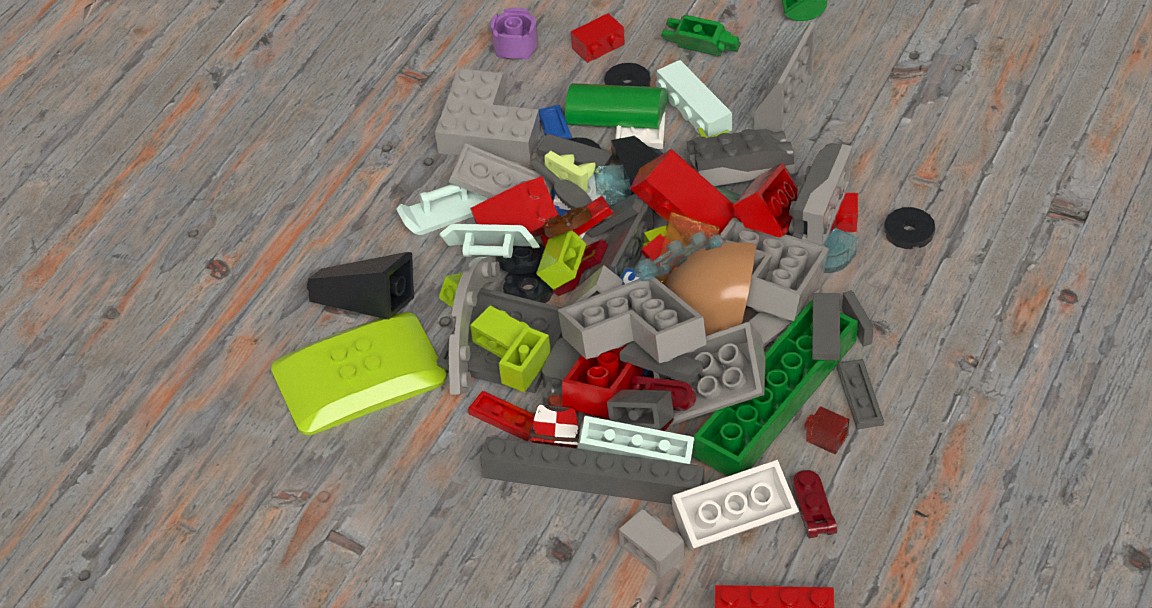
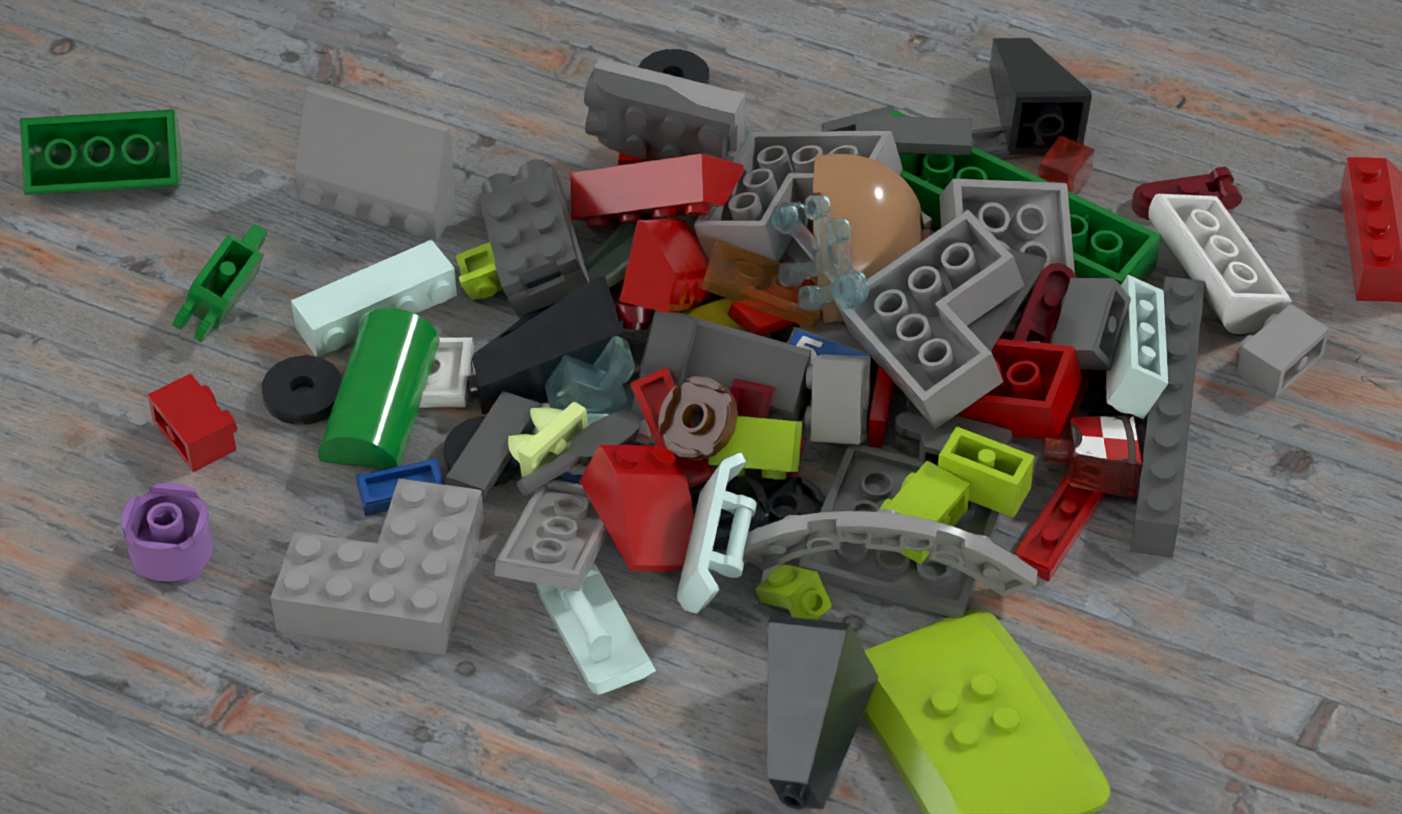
camera: 95 degrees left, 0 degrees up
(897, 407) = (1036, 90): none -> black slope

